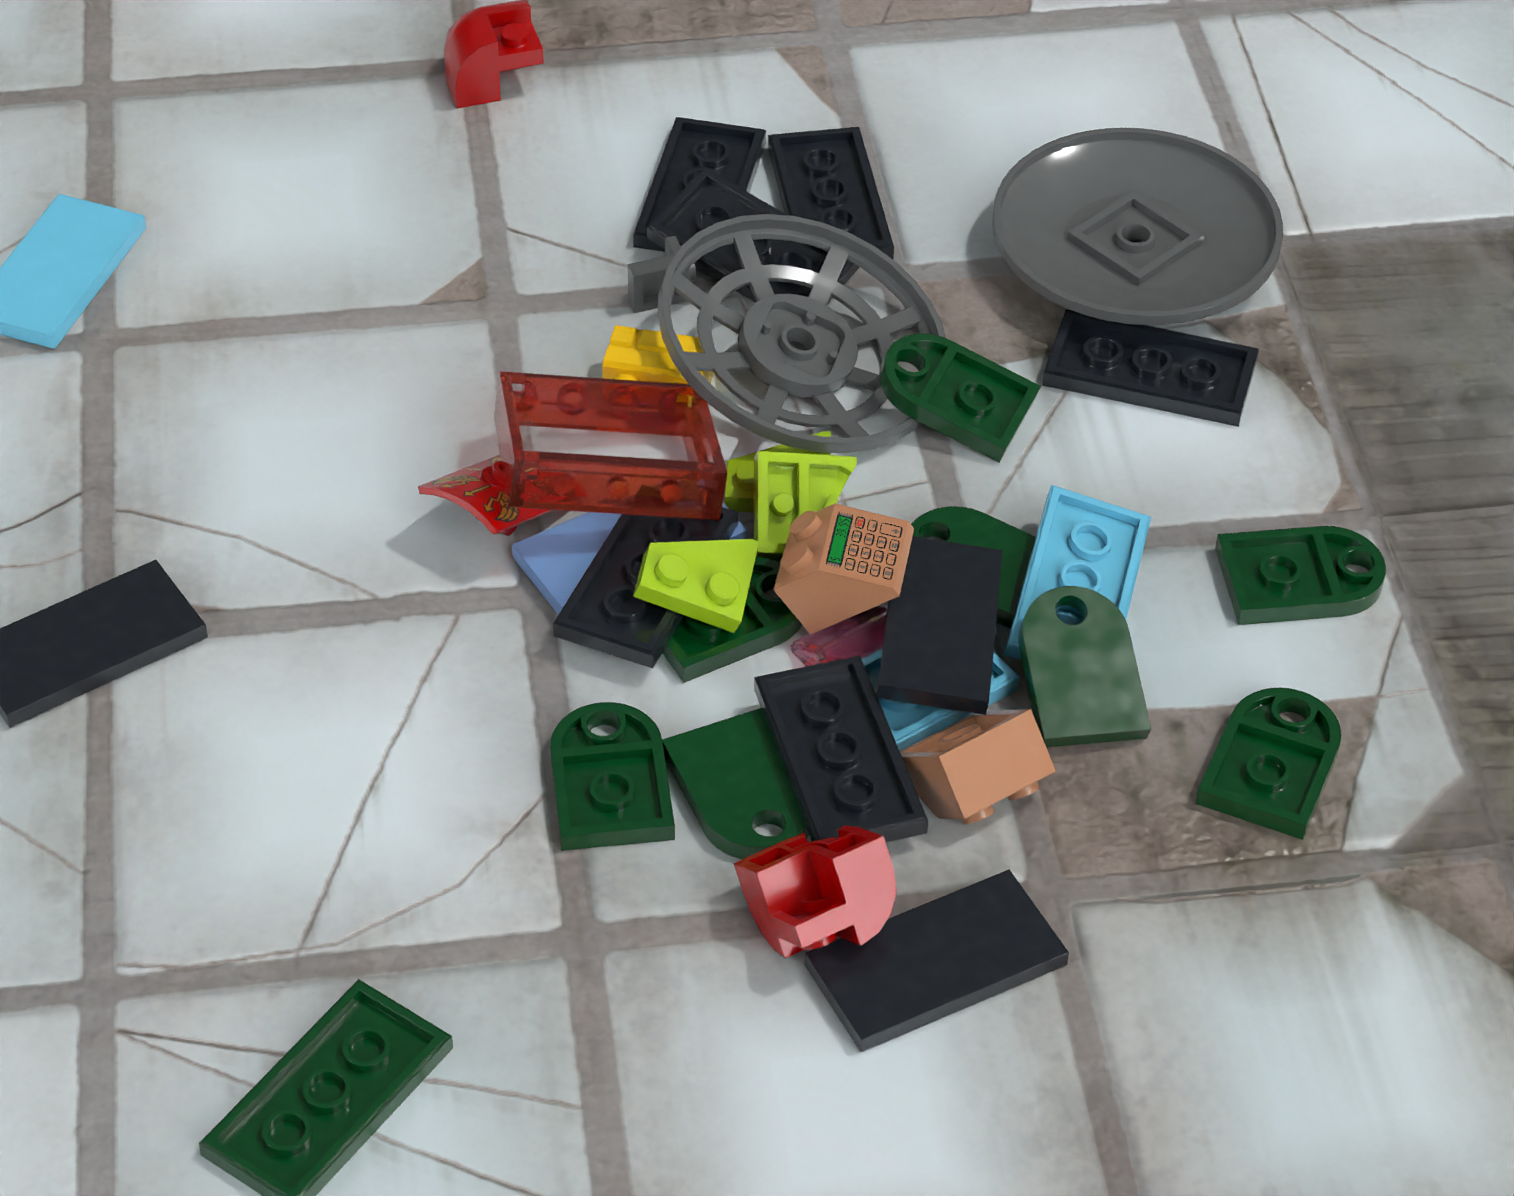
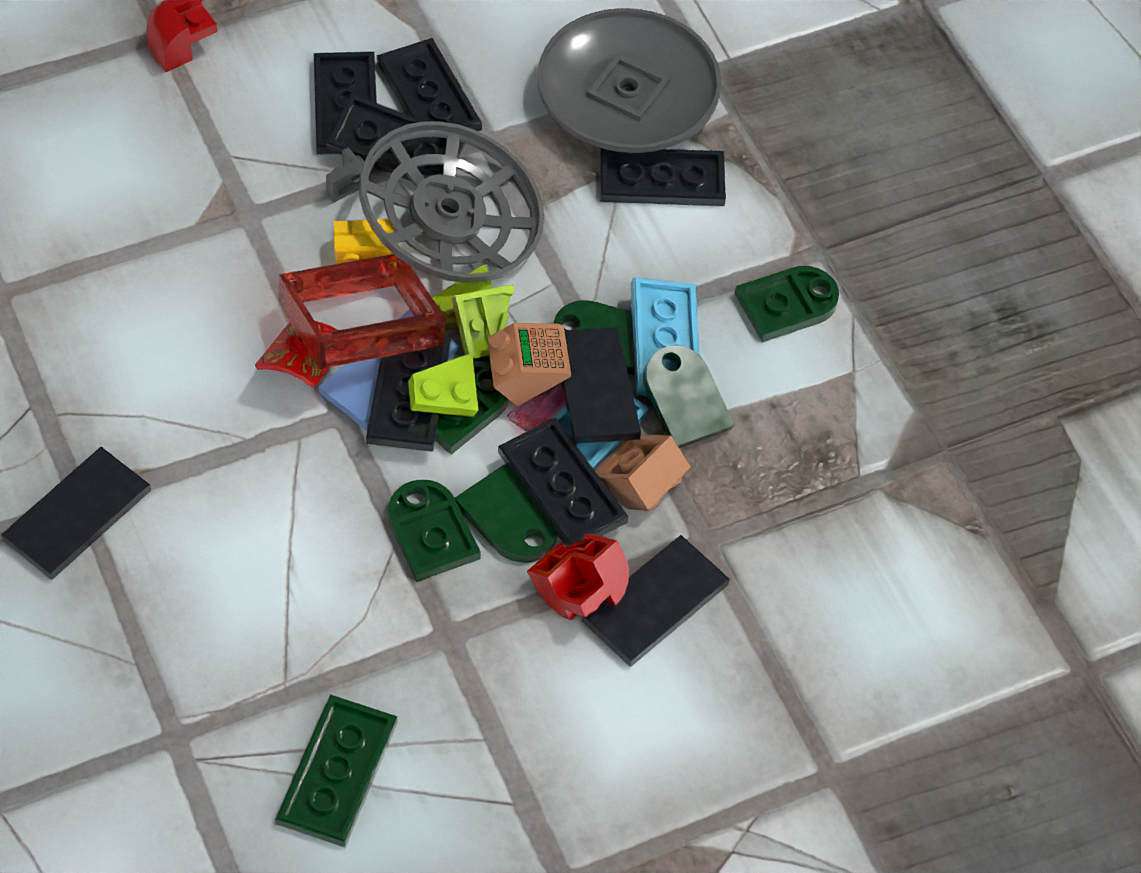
camera: 20 degrees left, 10 degrees up
(957, 392) = (555, 221): dark green tile -> none
(1271, 766) = (807, 432): dark green tile -> none

